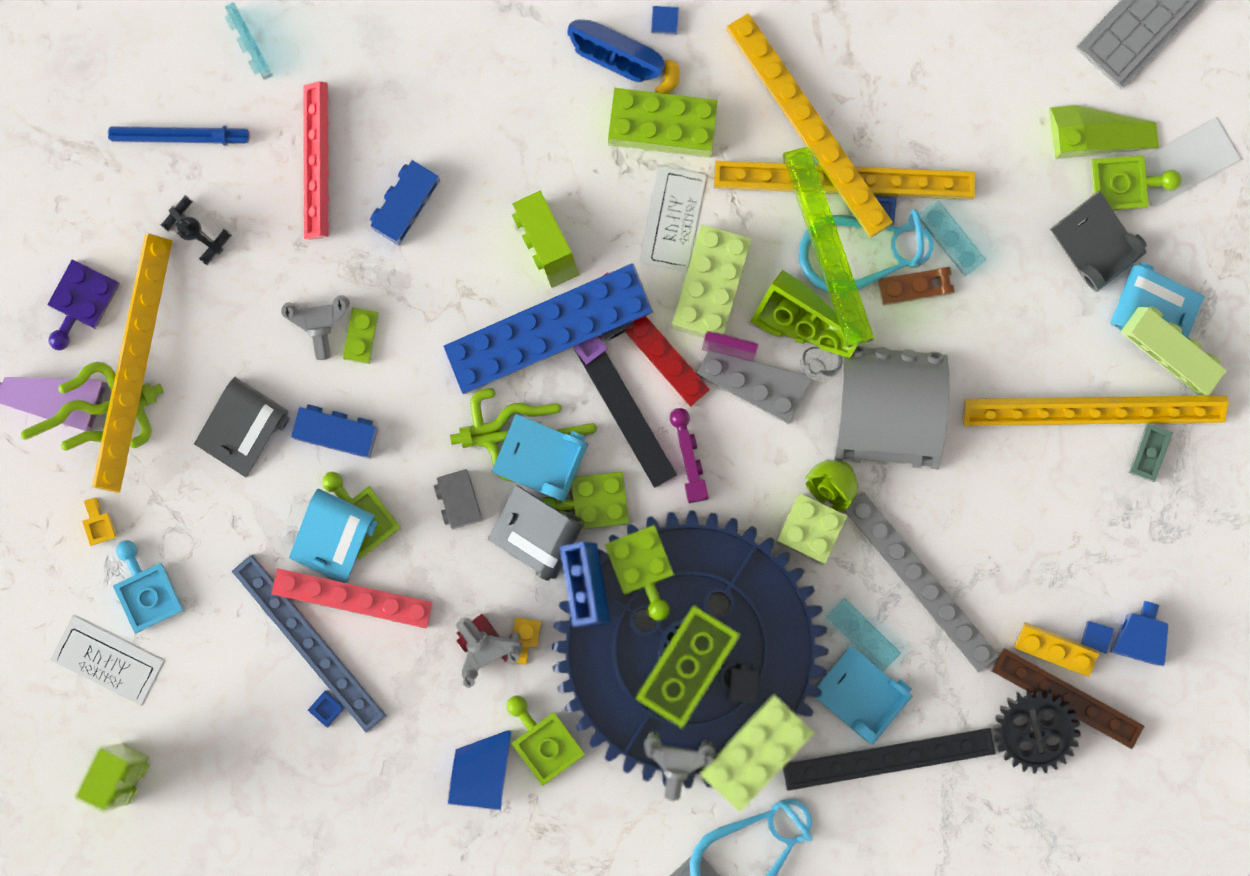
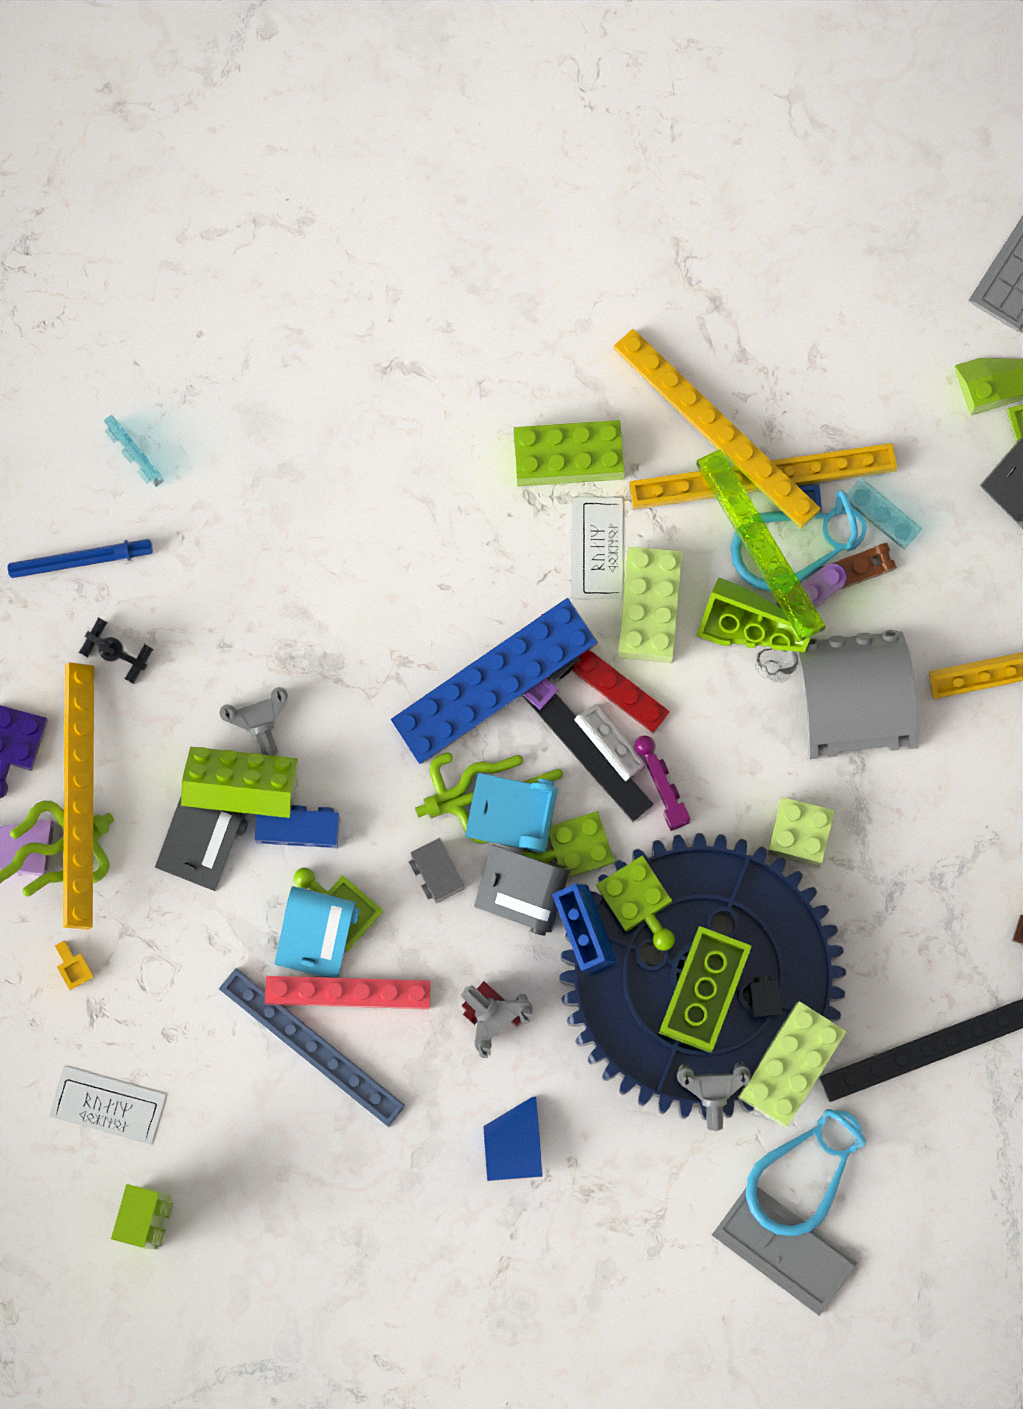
camera: 10 degrees left, 5 degrees down
(148, 594) = (137, 1029): medium azure plate -> none
(287, 379) = (239, 782): none -> lime brick
(316, 160) = (225, 558): coral plate -> none
(326, 709) = (343, 1110): blue tile -> none
(360, 335) = (304, 725): lime plate -> none
(404, 202) = (322, 582): blue brick -> none
(529, 636) = (536, 993): yellow plate -> none
(545, 238) = (473, 591): lime wedge -> none
(546, 745) = (575, 1104): lime plate -> none
(615, 51) = (506, 391): blue brick -> none
(647, 408) = (610, 742): none -> white tile
(664, 20) = (549, 351): blue tile -> none
(671, 77) = (568, 406): yellow arm -> none
(730, 346) = (682, 663): magenta tile -> none
(758, 384) = (717, 697): light grey wing -> none
(834, 483) = (813, 781): lime cylinder -> none
(863, 634) = (875, 929): clear light blue plate -> none
(864, 697) = (889, 991): medium azure door -> none
(882, 295) = (824, 583): none -> medium lavender plate
(921, 583) = (923, 865): light grey plate -> none

